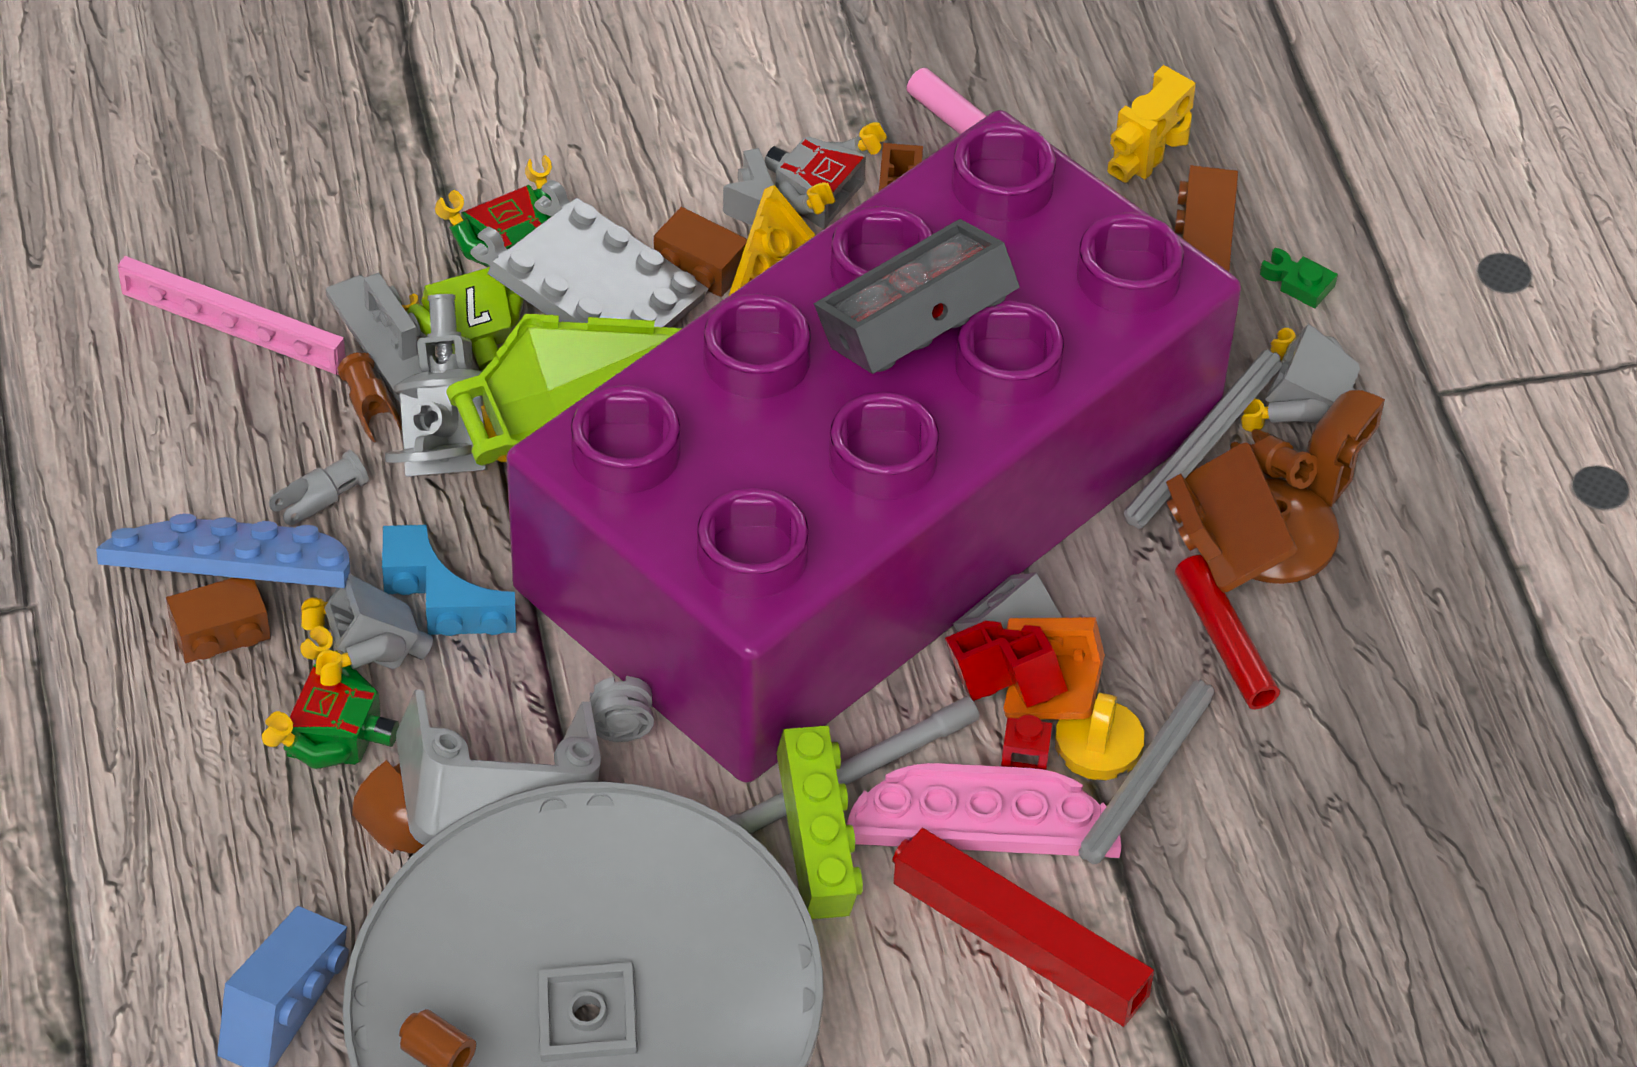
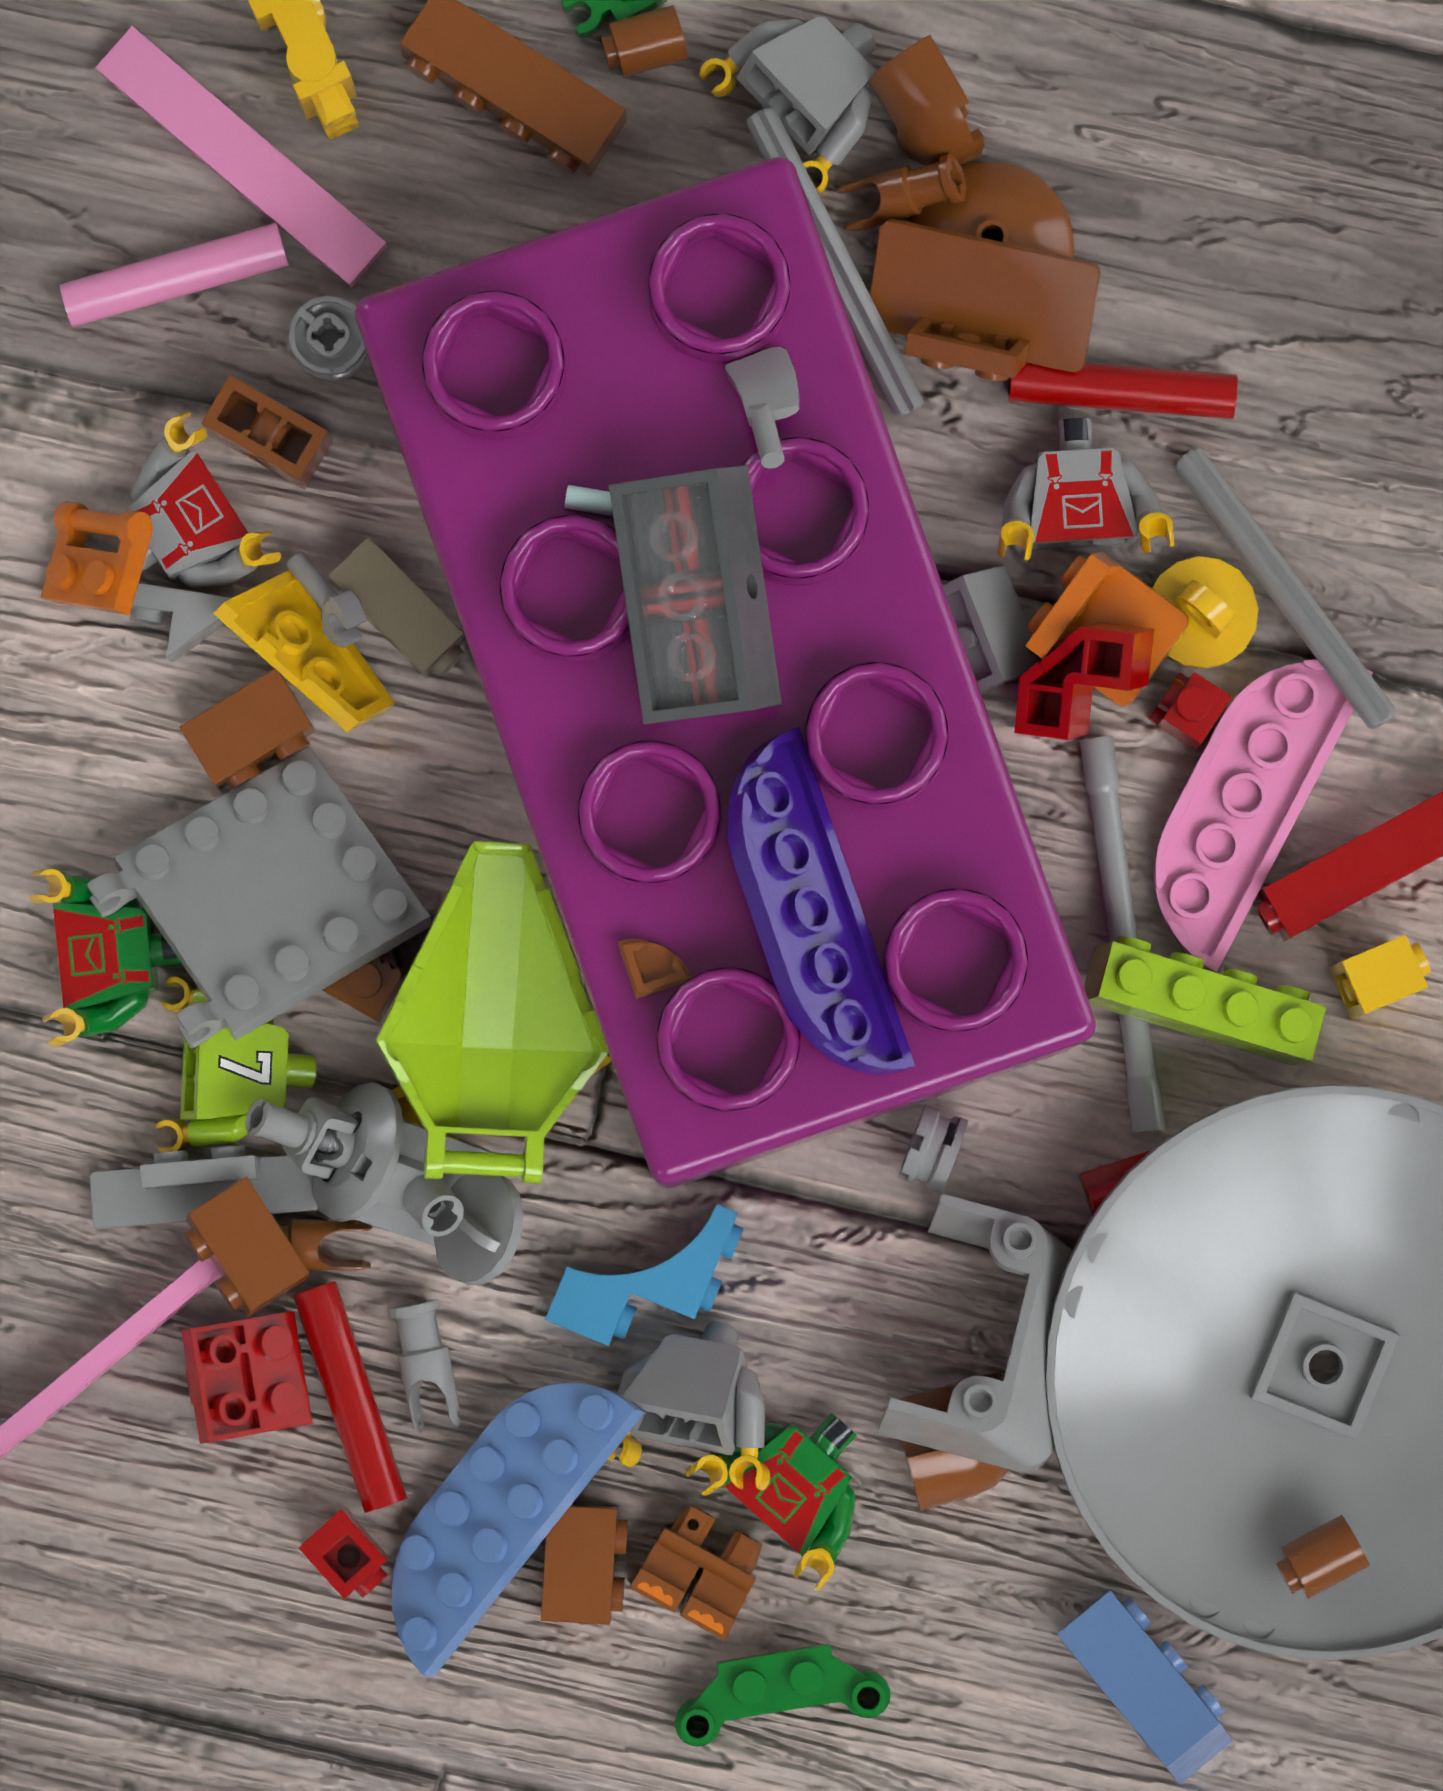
camera: 65 degrees left, 35 degrees up
(162, 494) = (324, 1548): none -> red brick
(182, 761) = (779, 1684): none -> green plate
(236, 686) = (721, 1584): none -> dark orange hips
(261, 391) = (246, 1377): none -> red plate
(275, 457) = (350, 1397): none -> red piece
(350, 342) = (245, 1248): none -> dark orange brick
(654, 378) = (652, 967): none -> dark orange tile
(736, 443) = (811, 911): none -> dark purple plate
(755, 136) = (93, 576): none -> orange plate
(898, 922) = (1380, 976): none -> yellow brick
(1074, 304) = (768, 393): none -> light grey piece
(1079, 101) = (241, 157): none -> bright pink tile
(1134, 625) = (1081, 499): none -> torso
(1280, 296) = (645, 42): none -> dark orange brick

